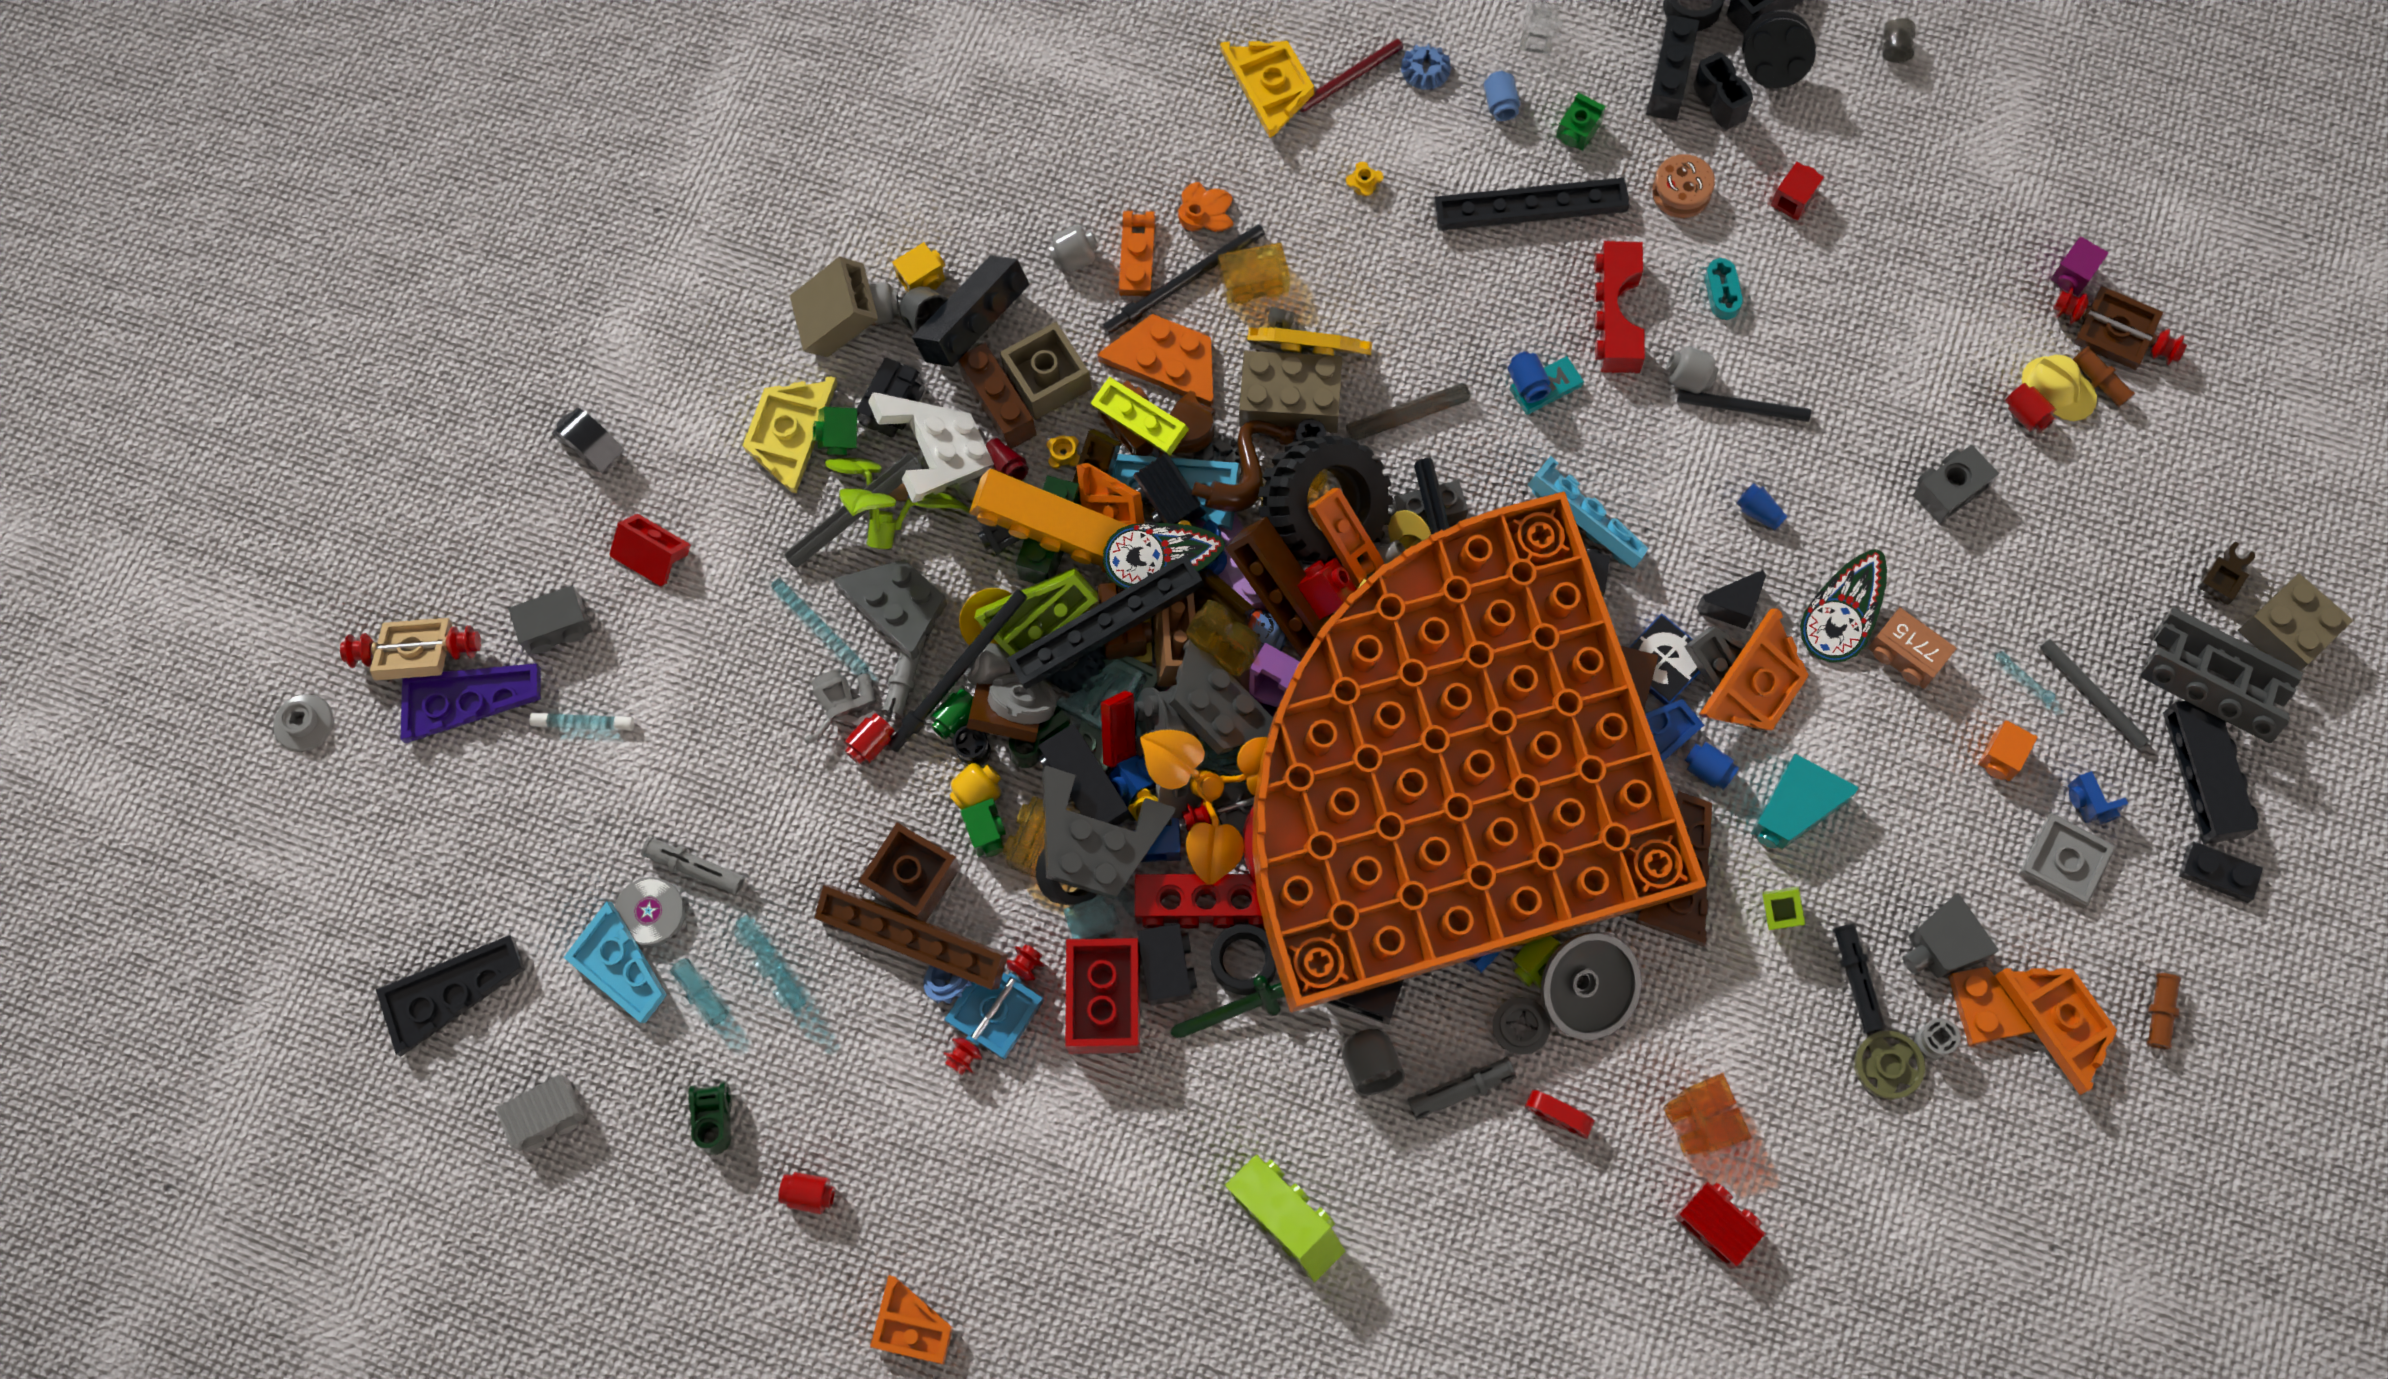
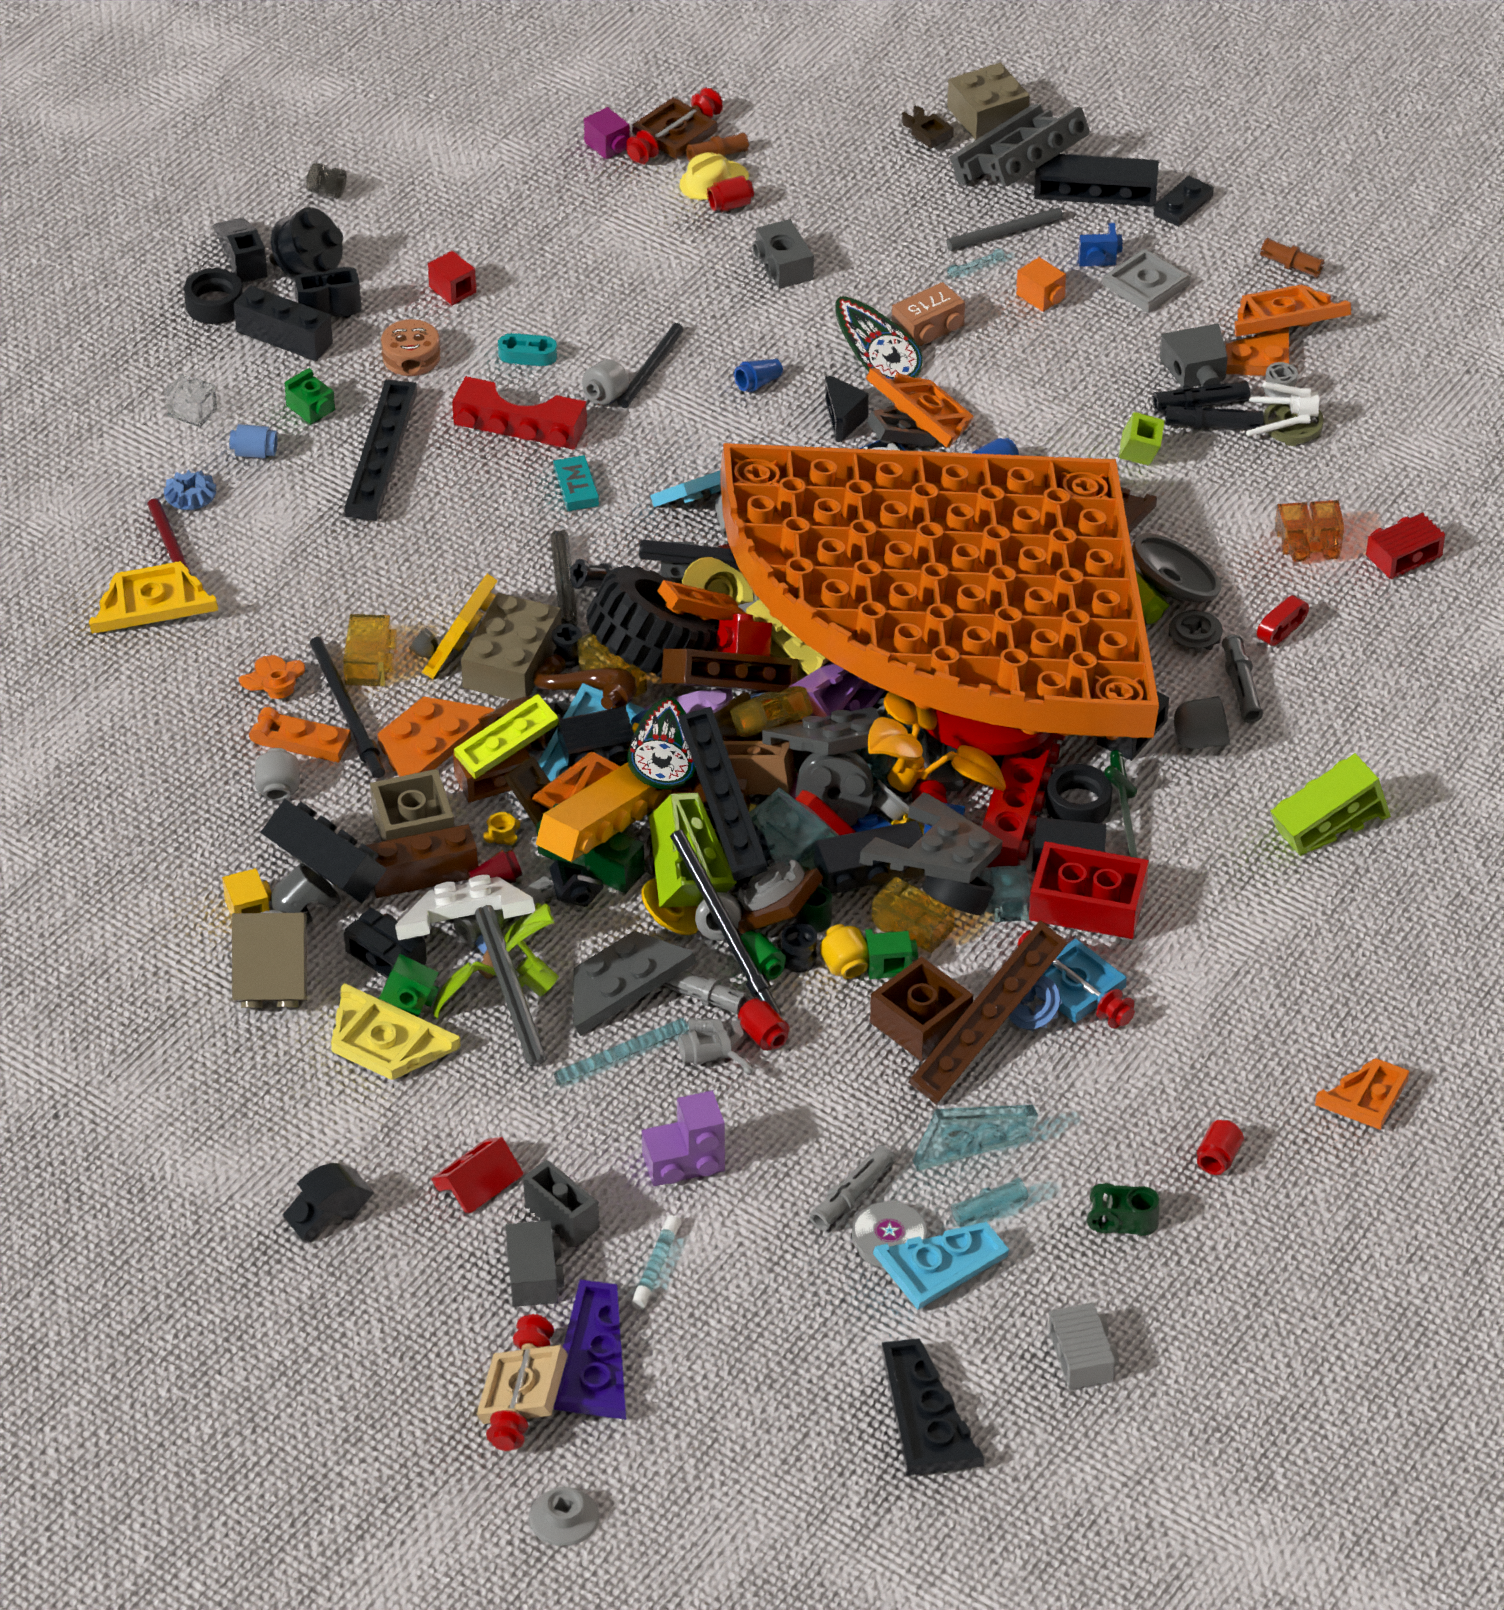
camera: 80 degrees left, 25 degrees down
(612, 623) = (561, 1200): none -> dark grey brick
(700, 710) = (689, 1146): none -> medium lavender brick
(1364, 187) = (297, 557): yellow plate -> none
(1408, 433) = (588, 575): none -> black bush
(1529, 377) = (570, 479): blue brick -> none
(1800, 802) = (1045, 413): teal slope -> none
(1889, 957) = (1203, 396): none -> black pin
(1904, 1069) = (1303, 403): none -> white plant

